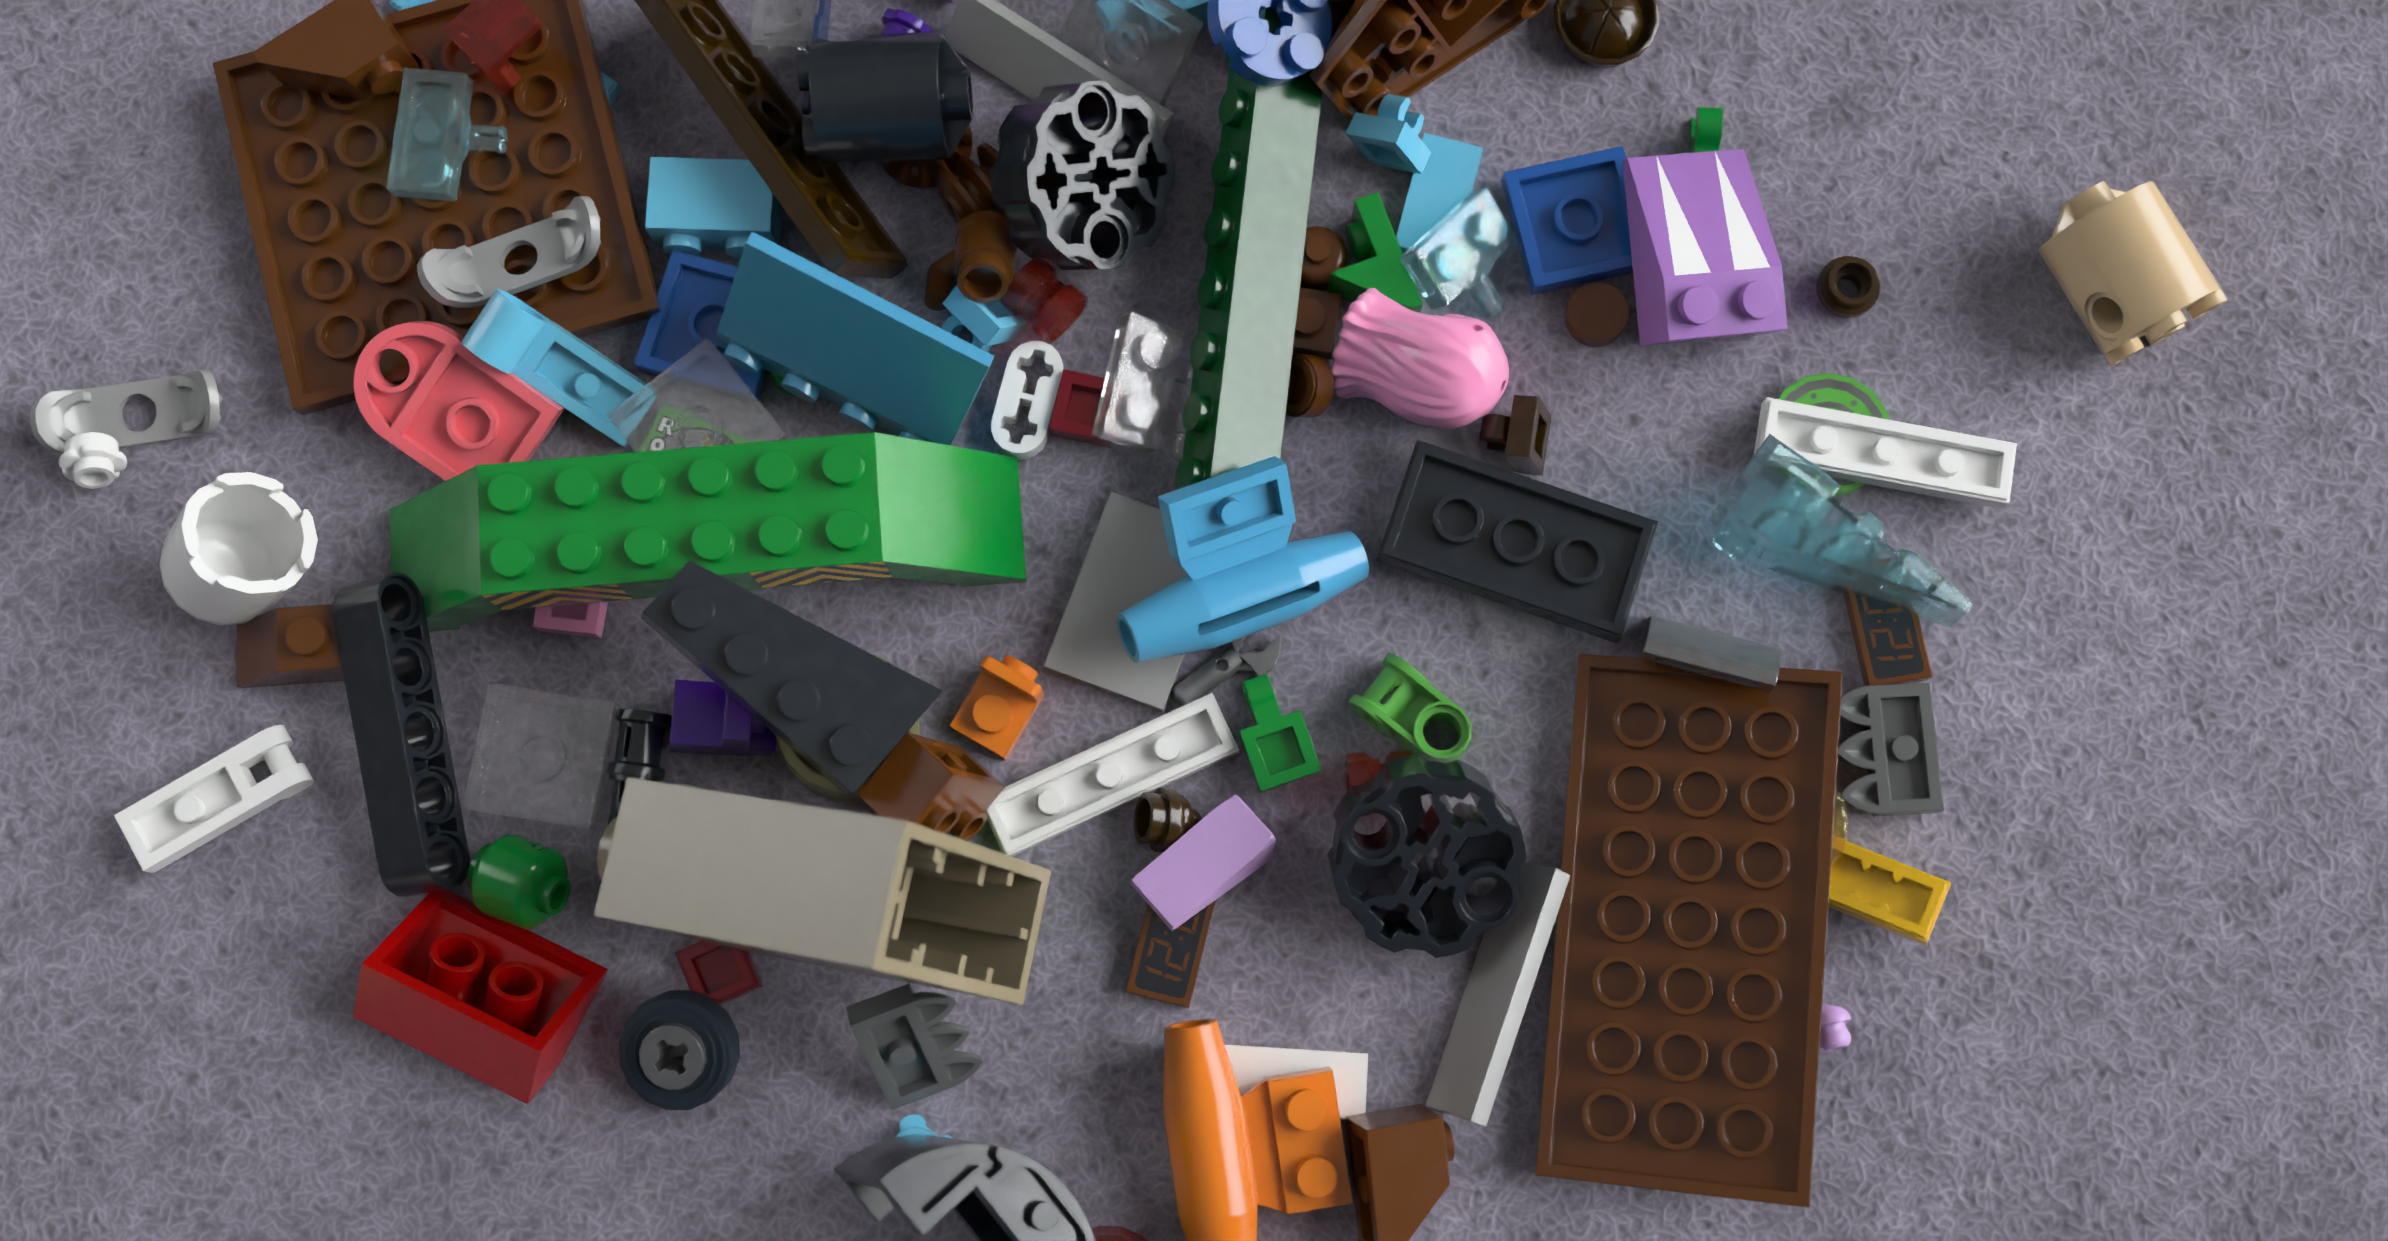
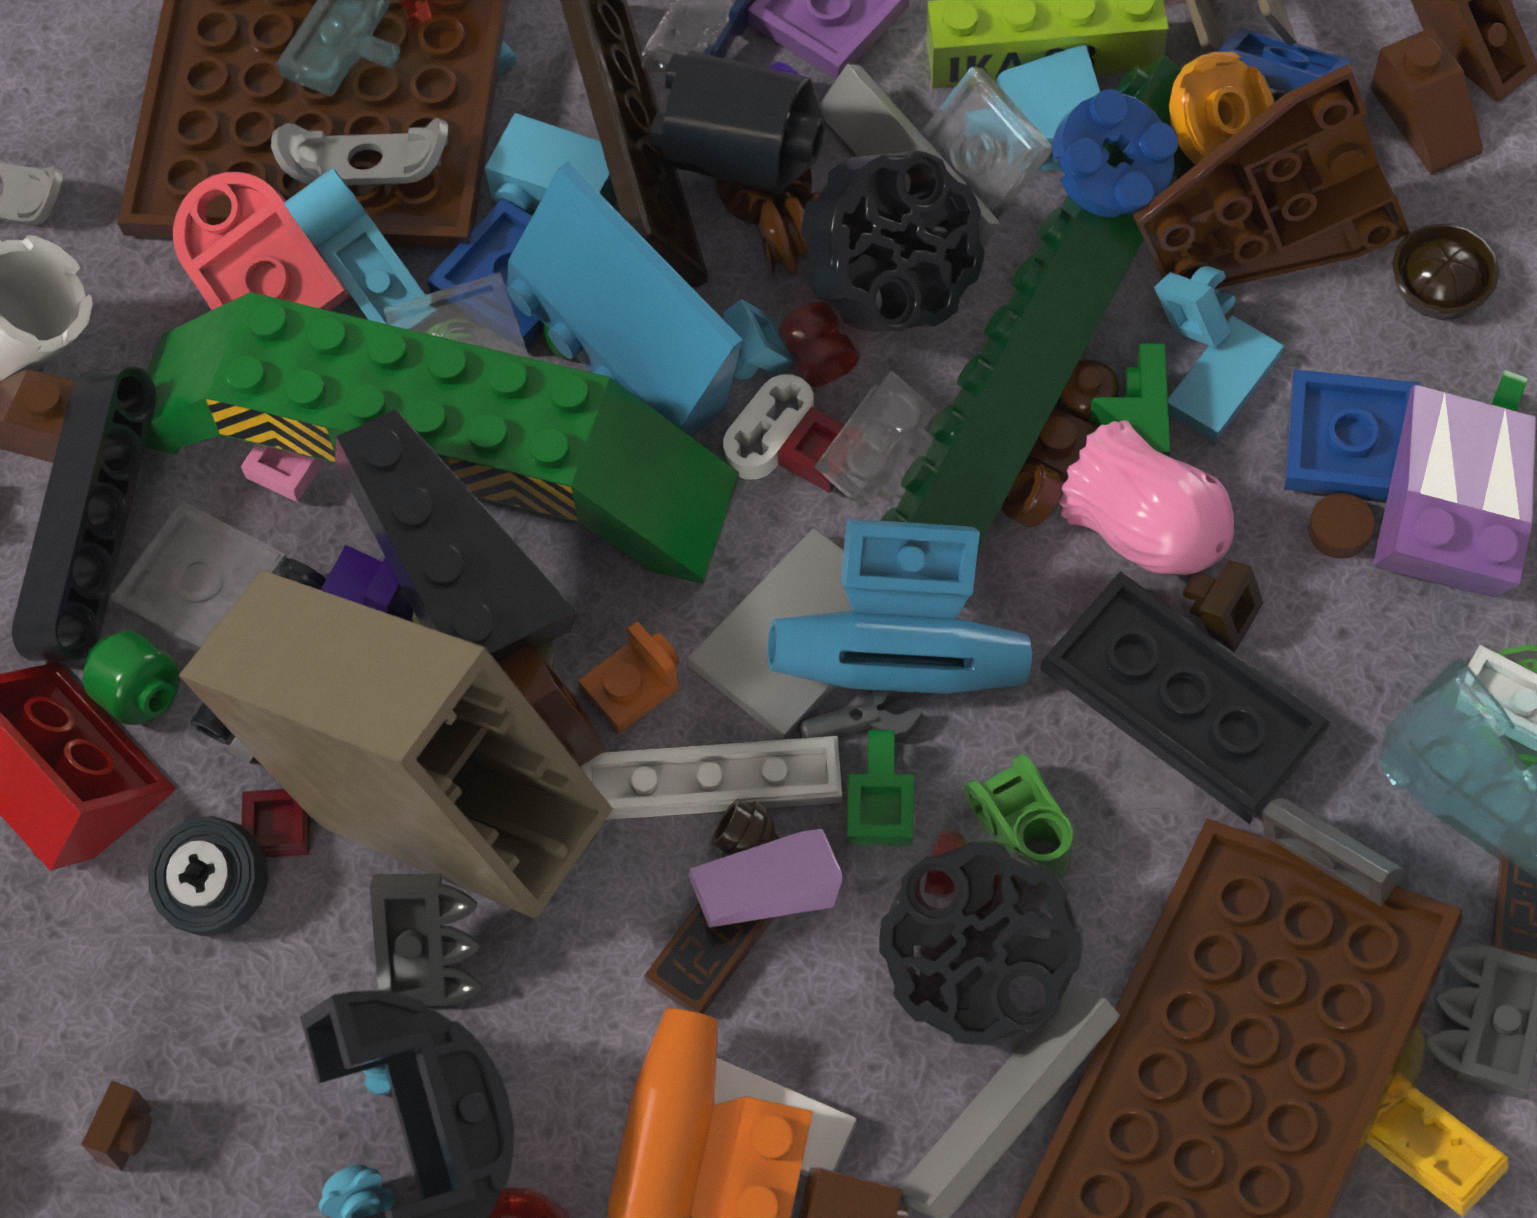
camera: 25 degrees right, 15 degrees down
(980, 262) = (771, 287): reddish brown piece -> none
(1461, 254) = (1226, 425): clear light blue plate -> none

